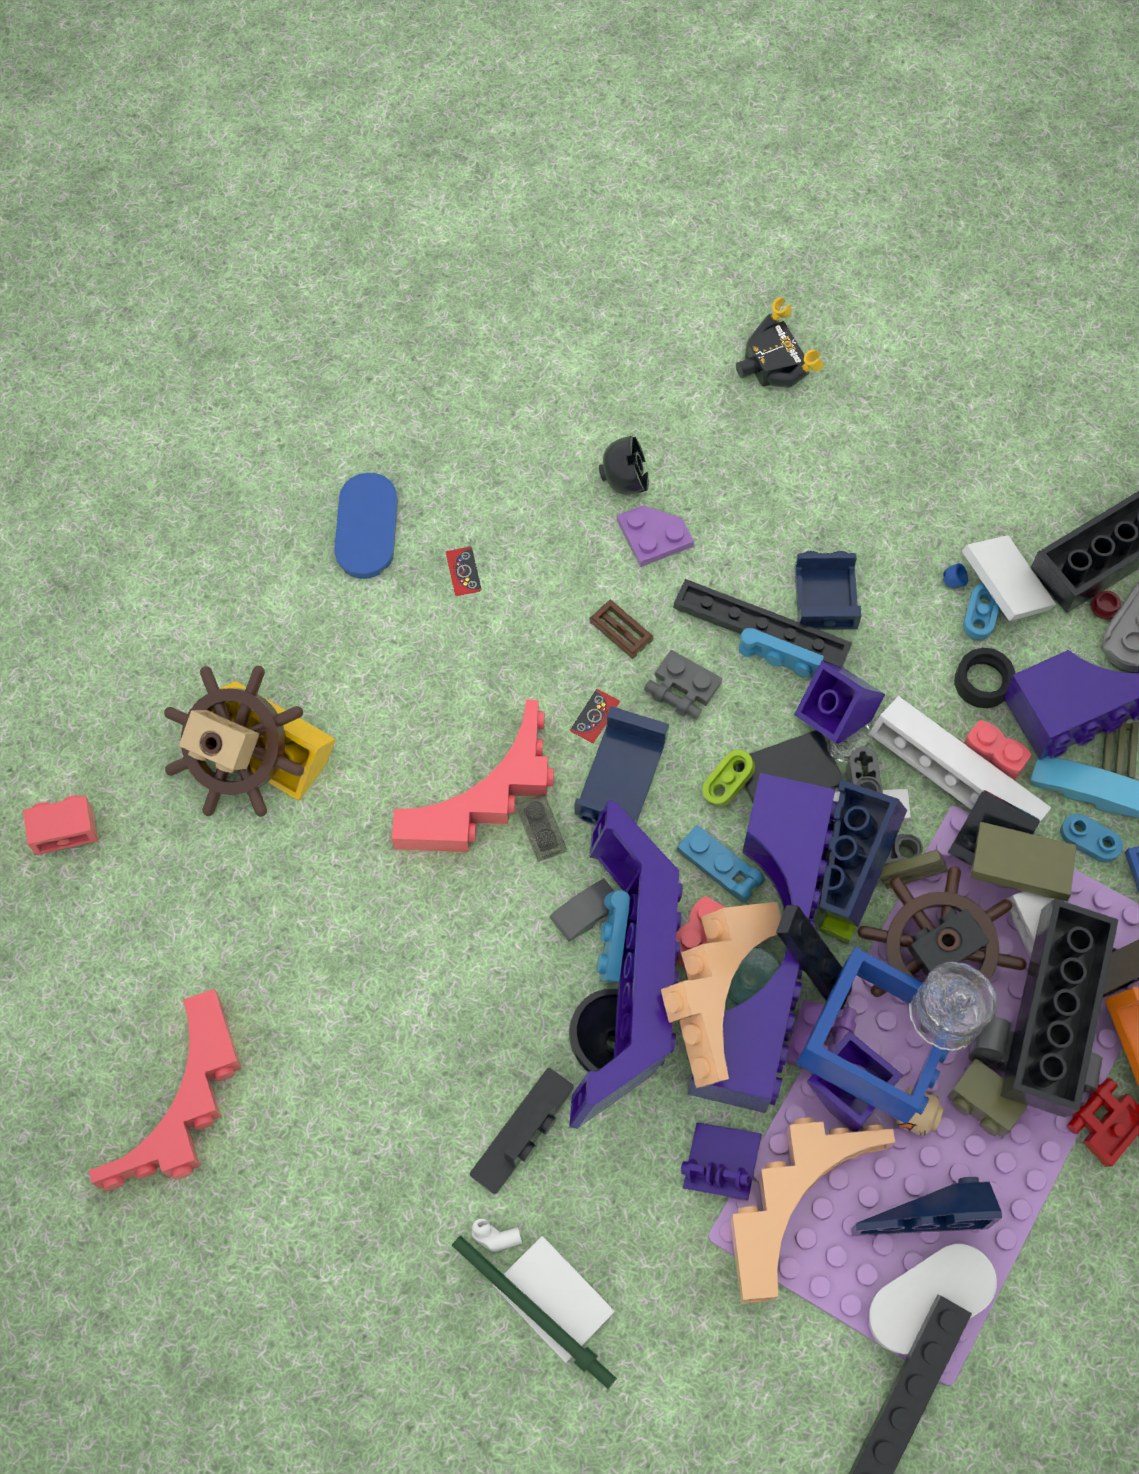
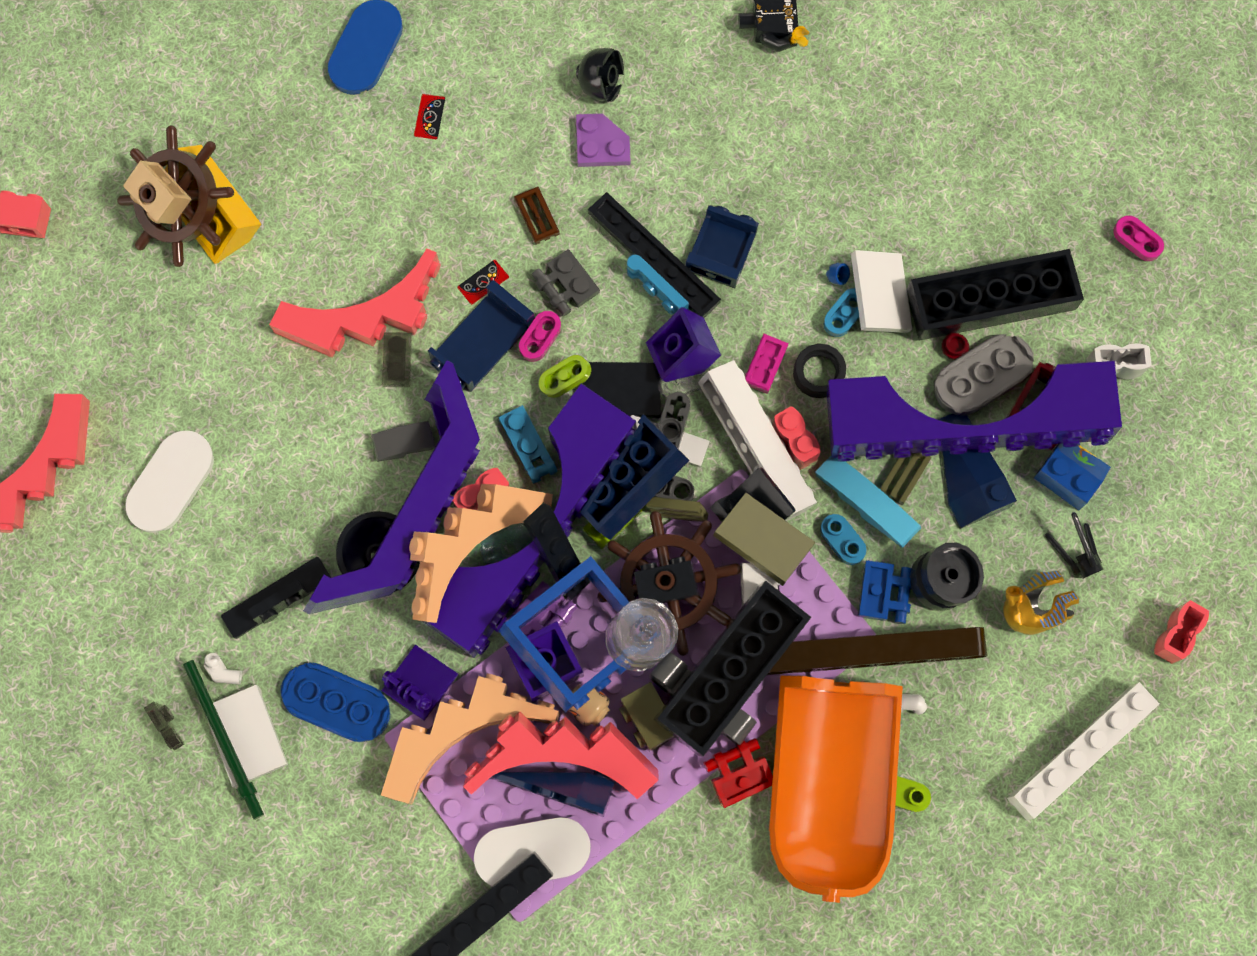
camera: 20 degrees right, 10 degrees up
(347, 1050) = (169, 481): none -> white tile
(453, 1316) = (161, 718): none -> clear smoke plate
(613, 934) = (411, 470): dark azure plate -> none
(637, 1221) = (335, 702): none -> blue tile
(682, 749) = (539, 337): none -> dark pink plate
(914, 1161) = (605, 752): none -> coral arch
(927, 688) = (765, 363): none -> dark pink plate

